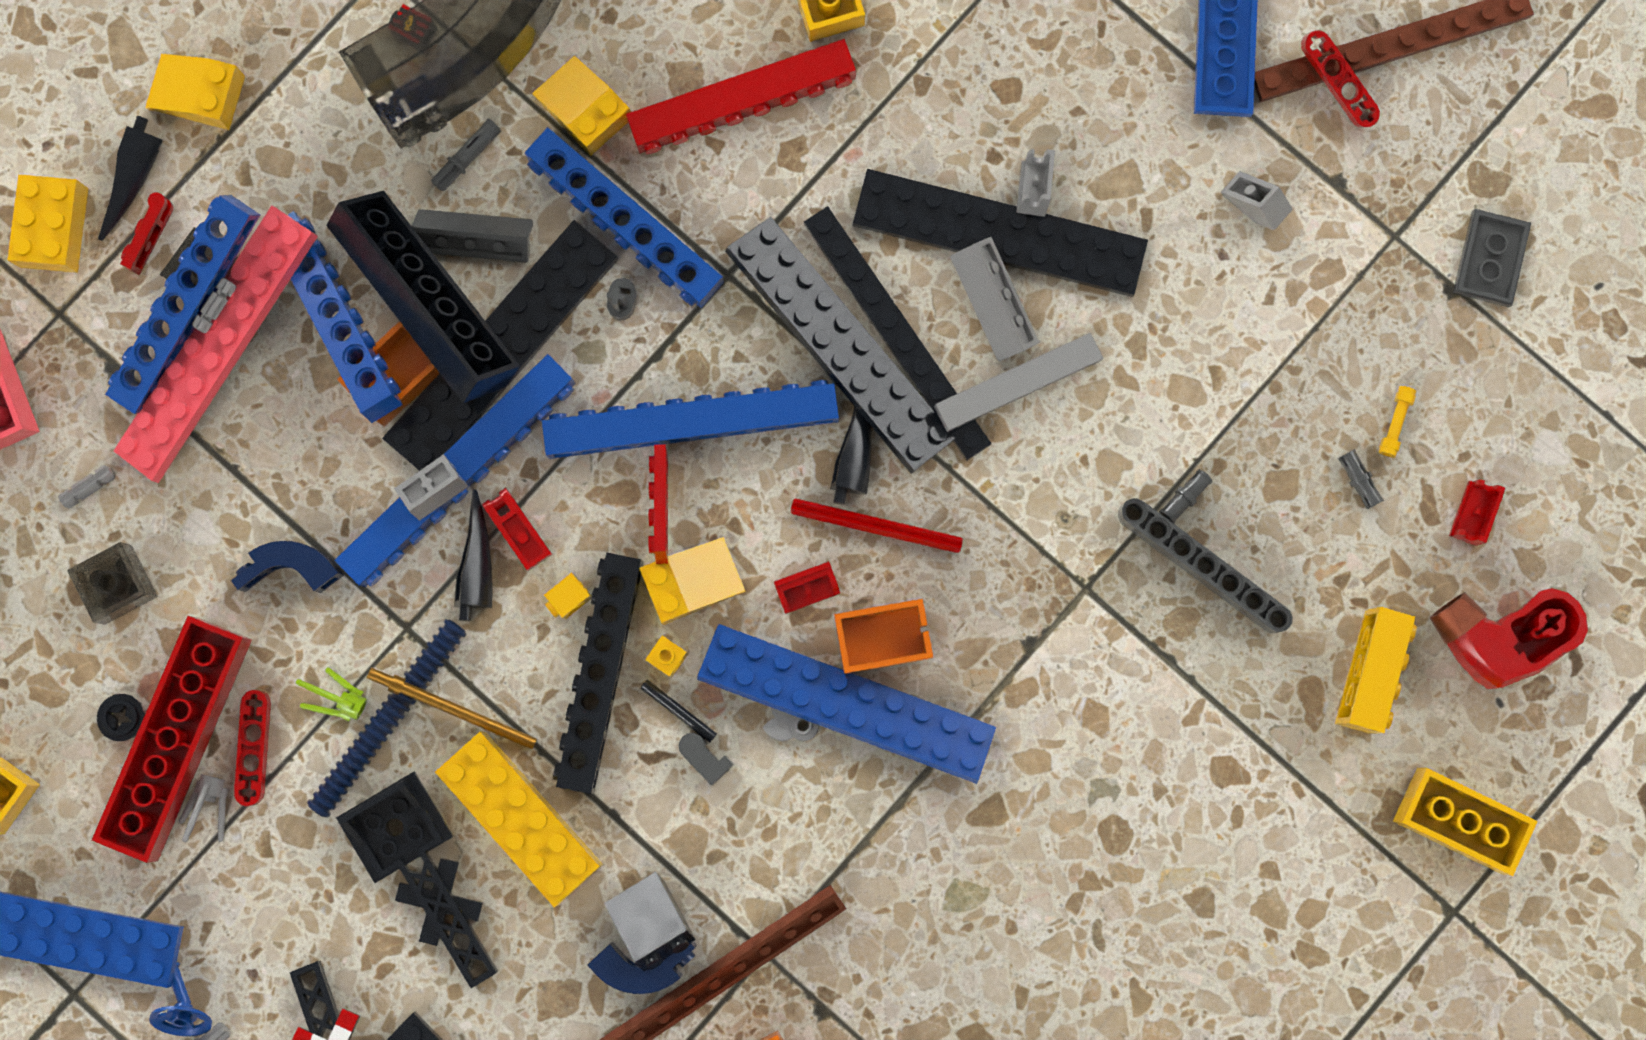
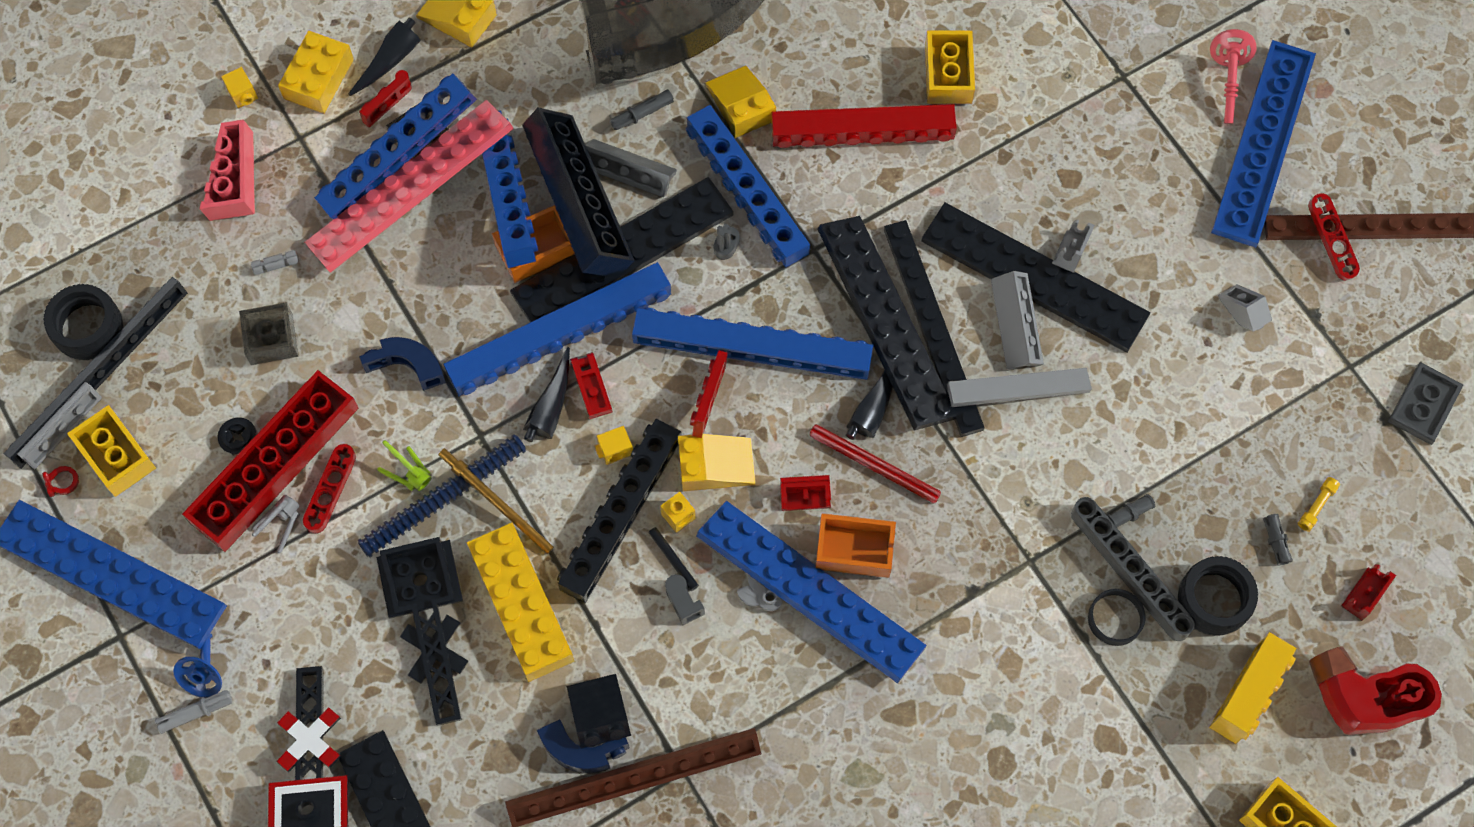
camera: 15 degrees right, 15 degrees down
(213, 305) = (419, 155): light grey axle -> none
(431, 487) = (537, 329): light grey hinge -> none
(1231, 622) = (1131, 597): none -> black tyre
(1338, 549) = (1238, 576): none -> black tyre

